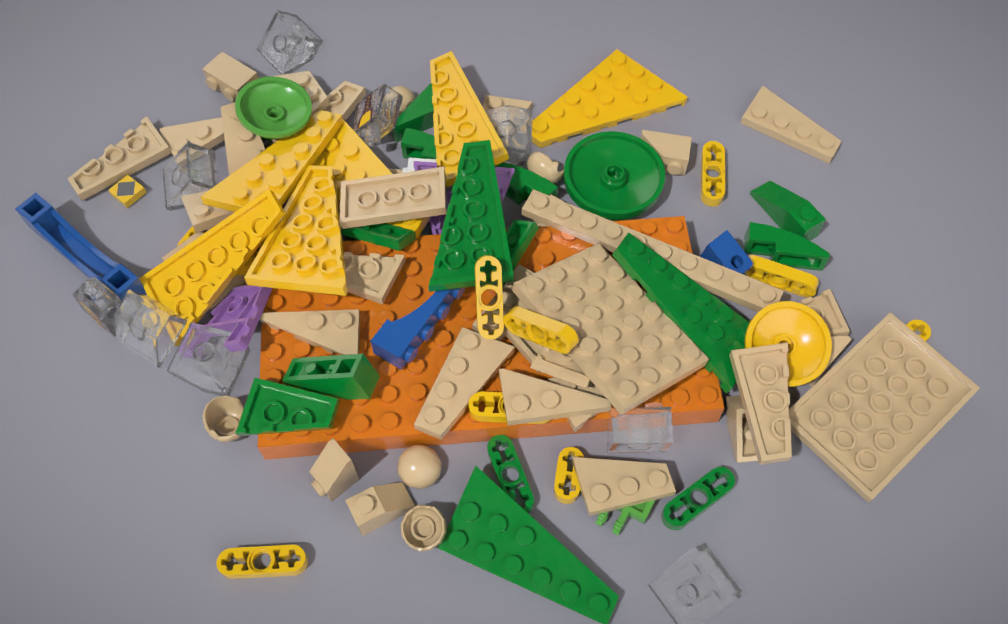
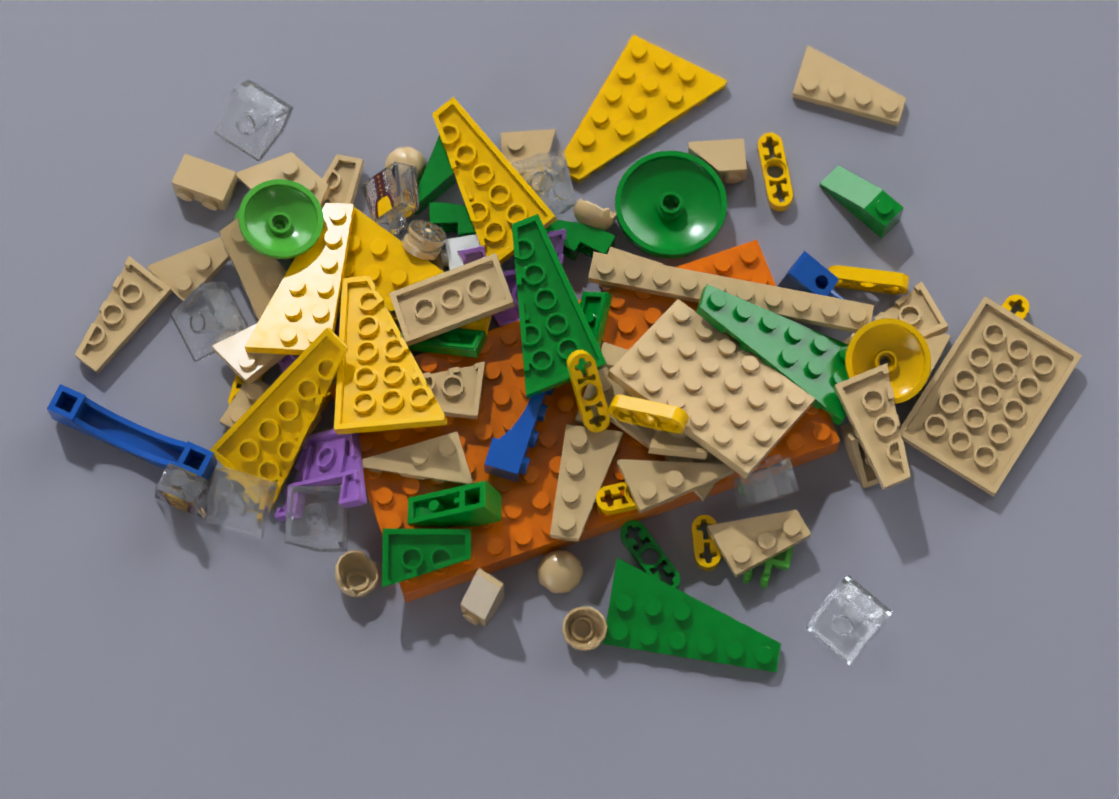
camera: 15 degrees left, 10 degrees up
(127, 191) = (143, 351): yellow tile -> none
(239, 570) = (418, 697): yellow beam -> none
(379, 506) = (535, 619): tan slope -> none
(390, 152) = (424, 241): none -> tan wheel
(687, 517) = (839, 512): green beam -> none
(784, 247) = (866, 245): green slope -> none

